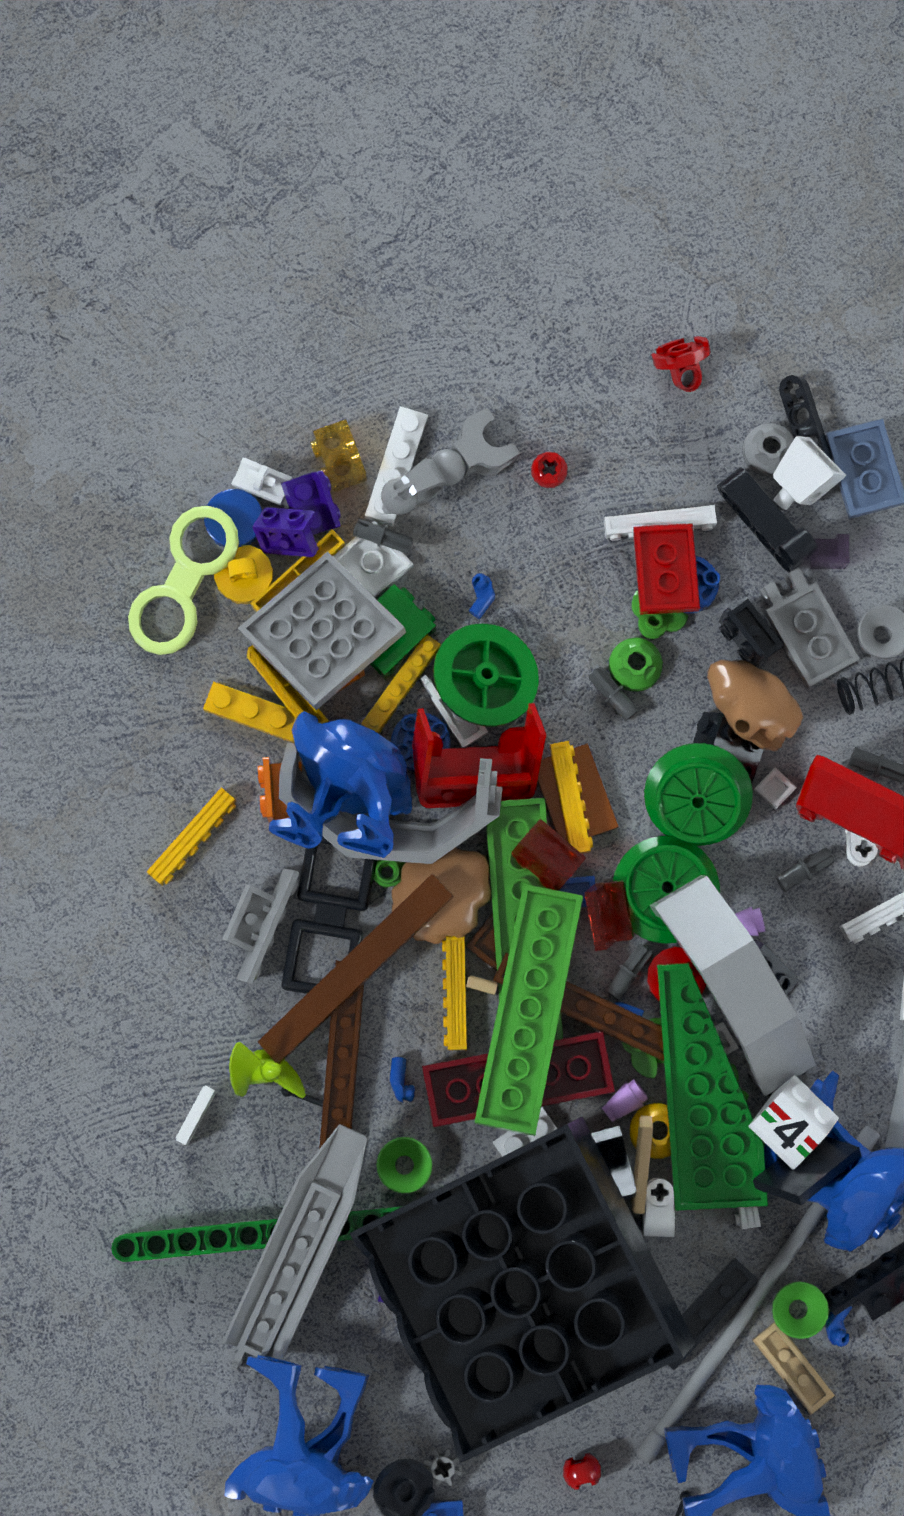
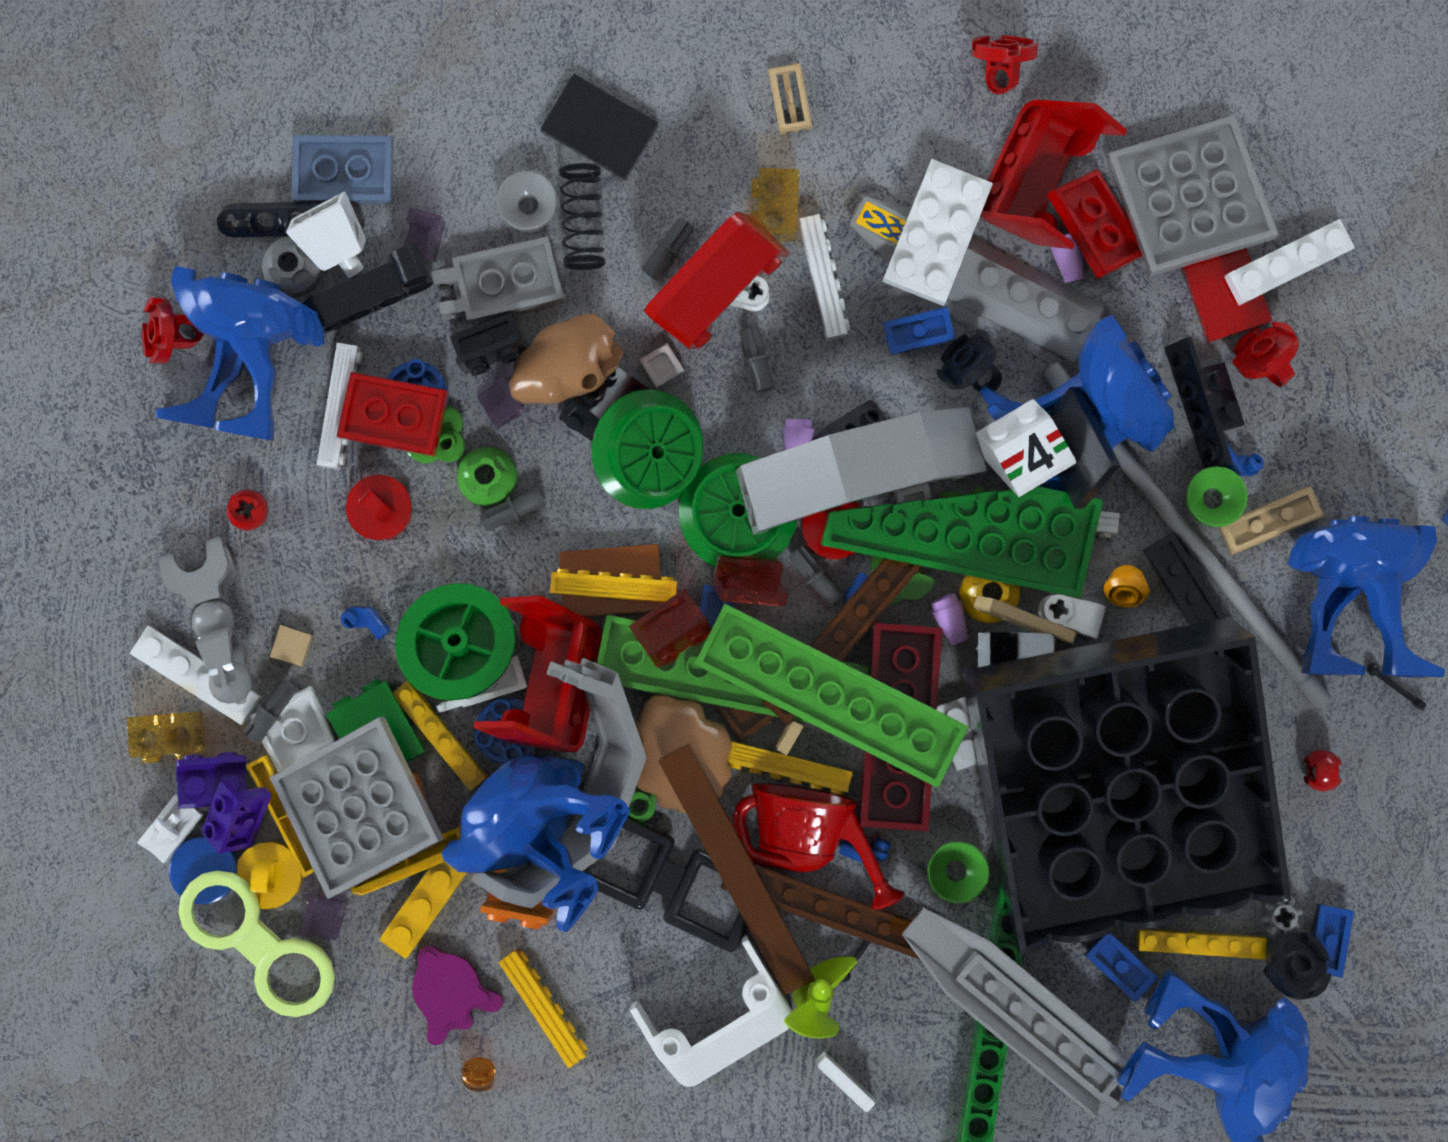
camera: 70 degrees left, 5 degrees up
(120, 797) = (478, 1074): none -> clear orange tile
(183, 752) = (447, 991): none -> magenta tile
(205, 1004) = (732, 1042): none -> white windscreen
(220, 629) = (323, 917): none -> clear purple panel
(256, 922) = (654, 961): light grey bracket -> none
(359, 1334) = (1121, 966): none -> blue plate
(398, 1401) = (1201, 943): none -> yellow piece
(404, 1023) = (805, 831): none -> red piece
(443, 539) = (291, 646): none -> tan tile
(582, 580) = (379, 507): none -> red tile
(696, 1250) = (1126, 587): none -> light orange cone
(700, 657) = (499, 403): none -> clear purple panel
(705, 424) = (245, 326): none -> blue animal
(856, 1054) = (969, 360): none -> black tile
(871, 1005) = (918, 331): none -> blue plate

